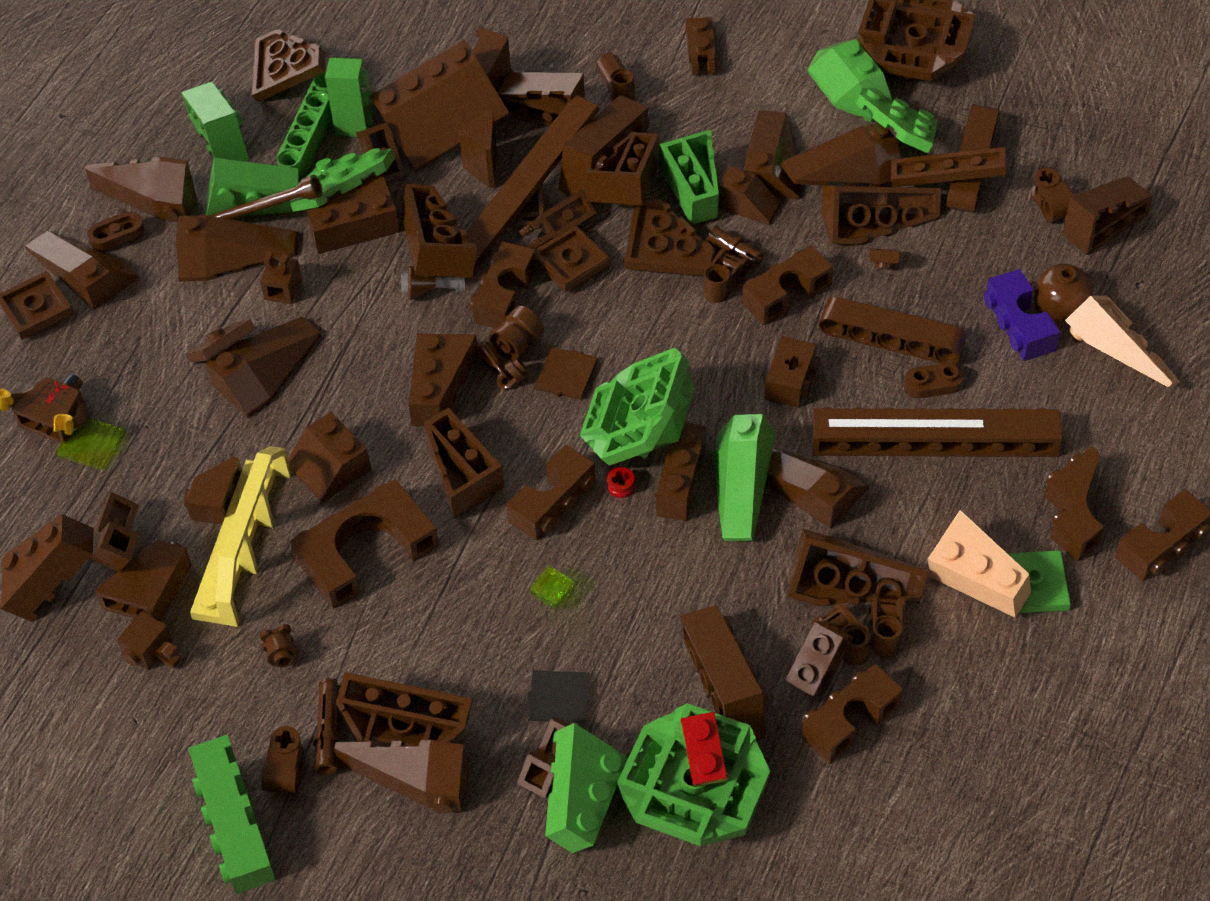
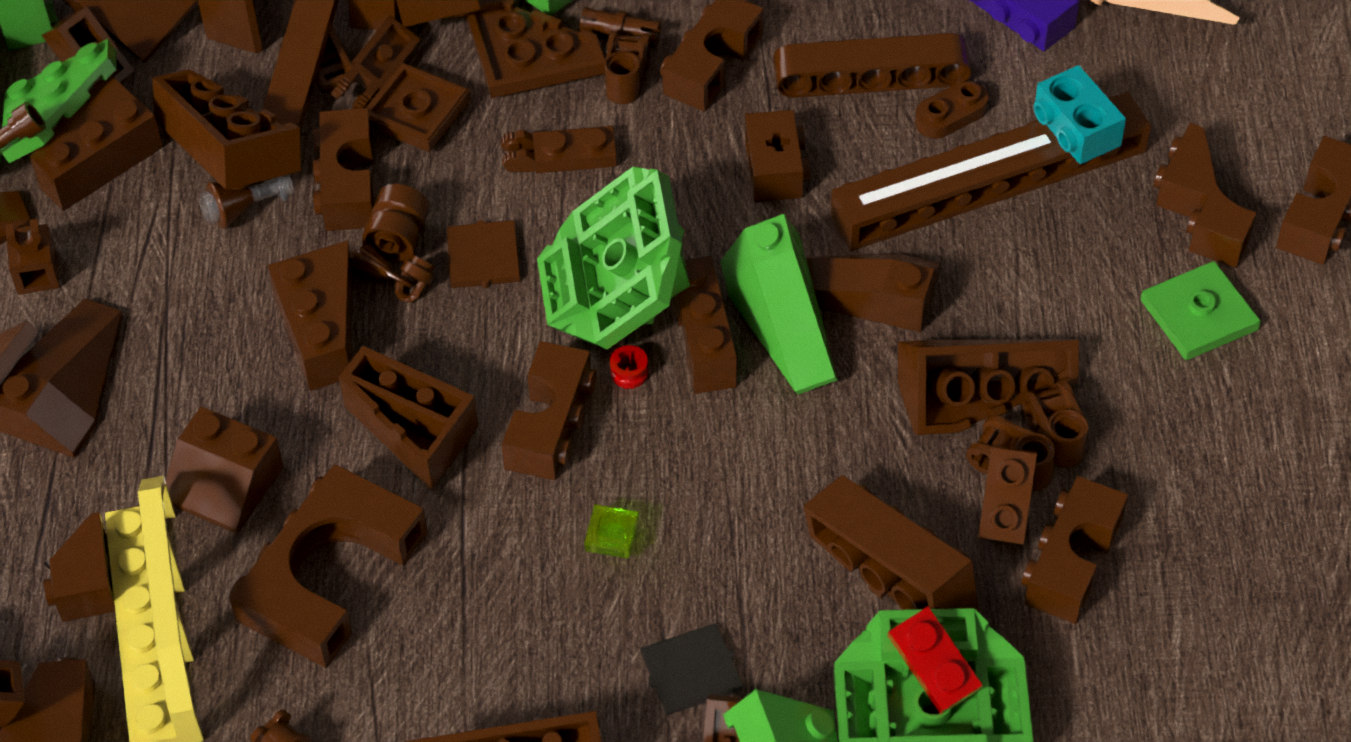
camera: 25 degrees left, 0 degrees up
(651, 319) = (559, 150): none -> reddish brown hinge
(979, 567) = (1137, 312): light nougat wedge -> none
(1008, 414) = (1079, 114): none -> teal brick

